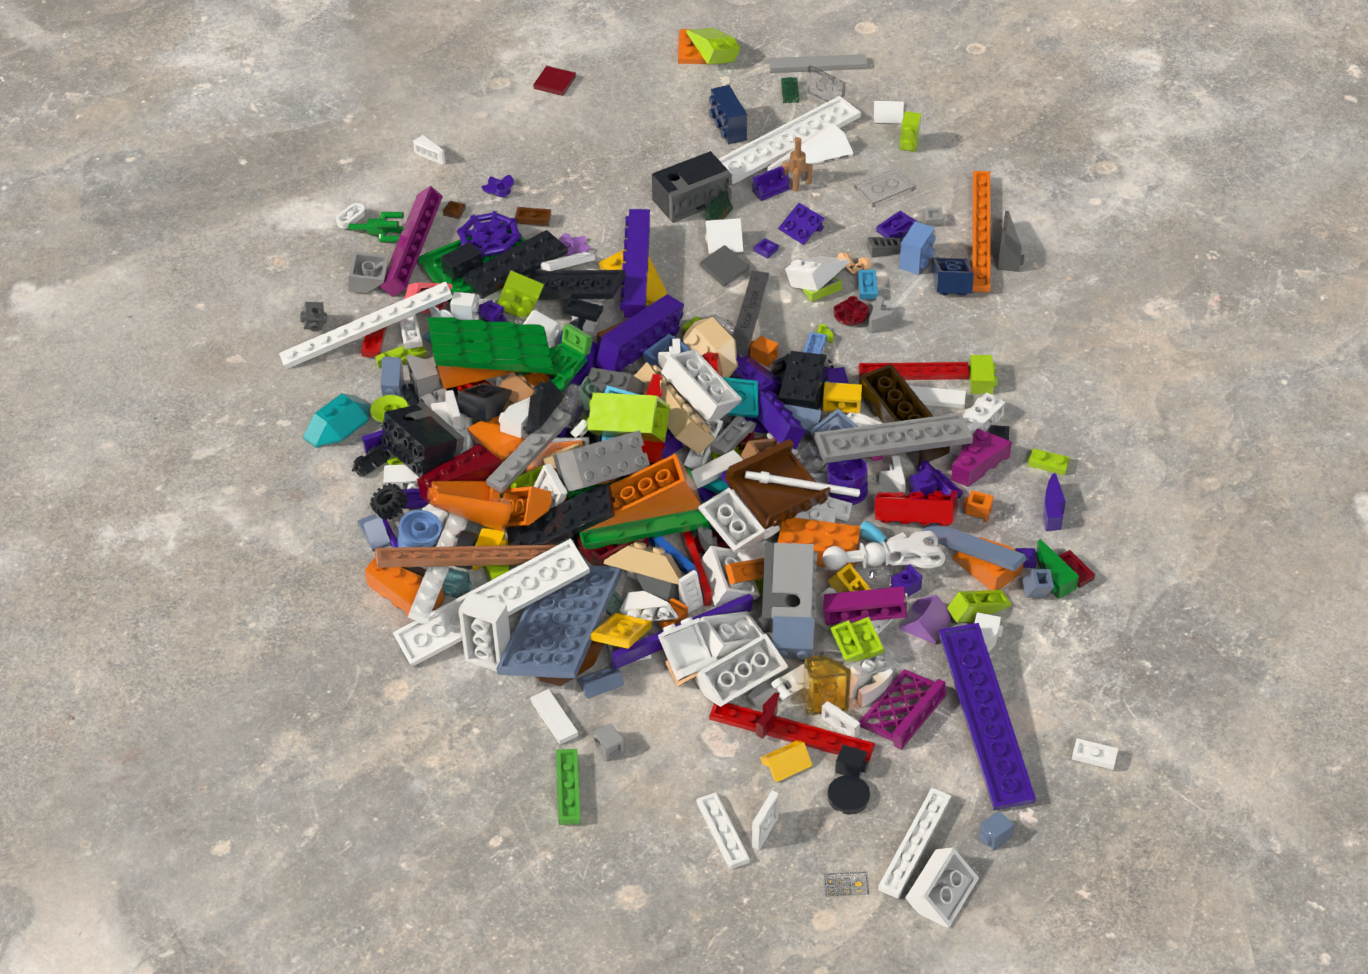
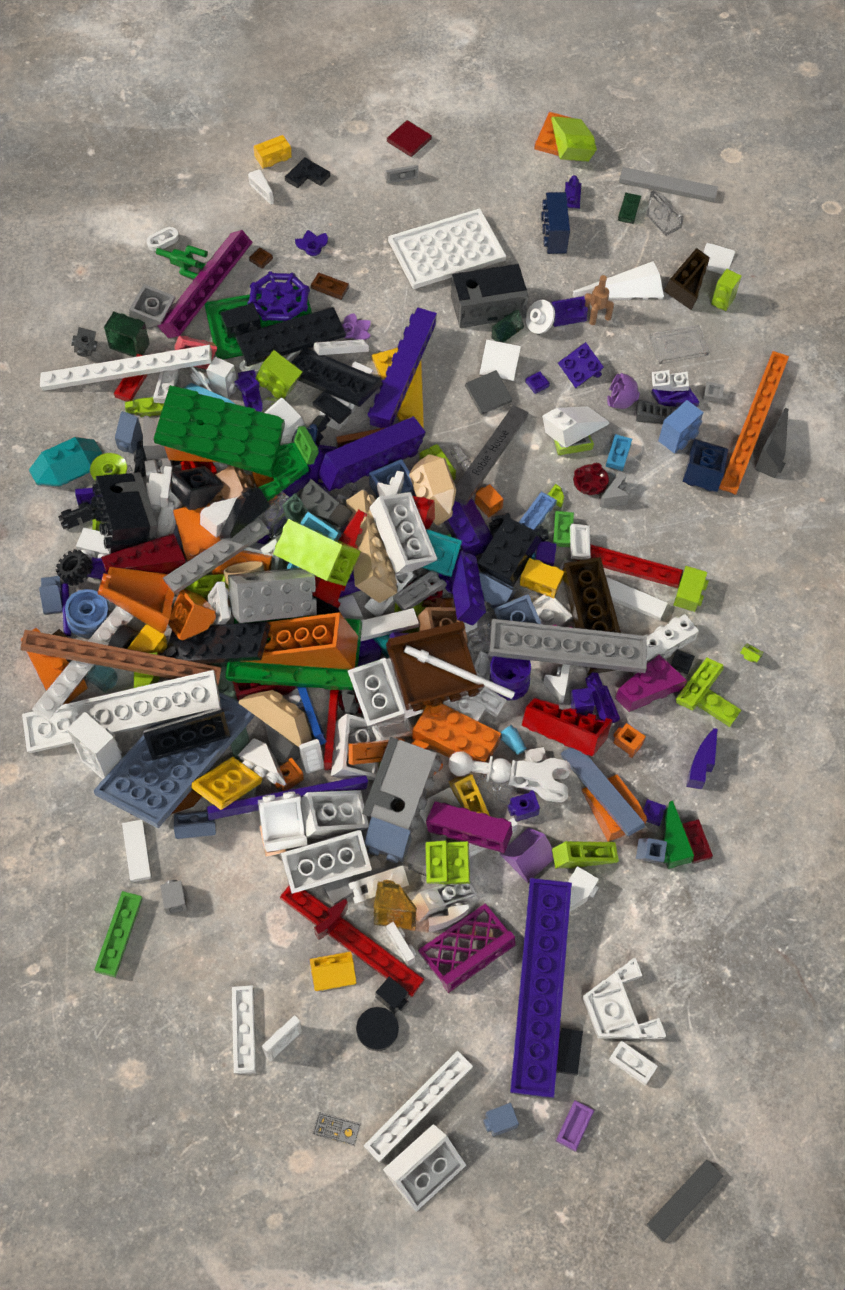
camera: 15 degrees right, 15 degrees up
(353, 298) = (126, 334): none -> clear green brick
(427, 119) = (272, 151): none -> yellow brick
(467, 128) = (307, 170): none -> black plate
(561, 110) = (401, 174): none -> light grey slope
(567, 596) = (186, 733): none -> black slope
(630, 160) = (446, 248): none -> white plate
(729, 80) = (573, 192): none -> dark purple hinge
(747, 192) = (540, 316): none -> white piece
(781, 141) = (610, 261): white plate -> none
(843, 356) = (562, 528): none -> bright green plate
(851, 234) = (624, 392): none -> medium lavender cylinder
(863, 360) = (580, 542): none -> white tile
(864, 263) = (624, 426): light nougat piece -> none
(871, 132) = (688, 279): none -> dark brown wedge
(888, 216) = (670, 382): none -> white slope
(1023, 446) = (699, 683): none -> lime plate
(1034, 762) = (569, 1051): none -> black tile
(1059, 411) = (751, 653): none -> lime plate
(1059, 720) = (612, 1011): none -> white wing
(1064, 818) = (575, 1125): none -> medium lavender tile
(1187, 847) = (684, 1200): none -> dark grey tile

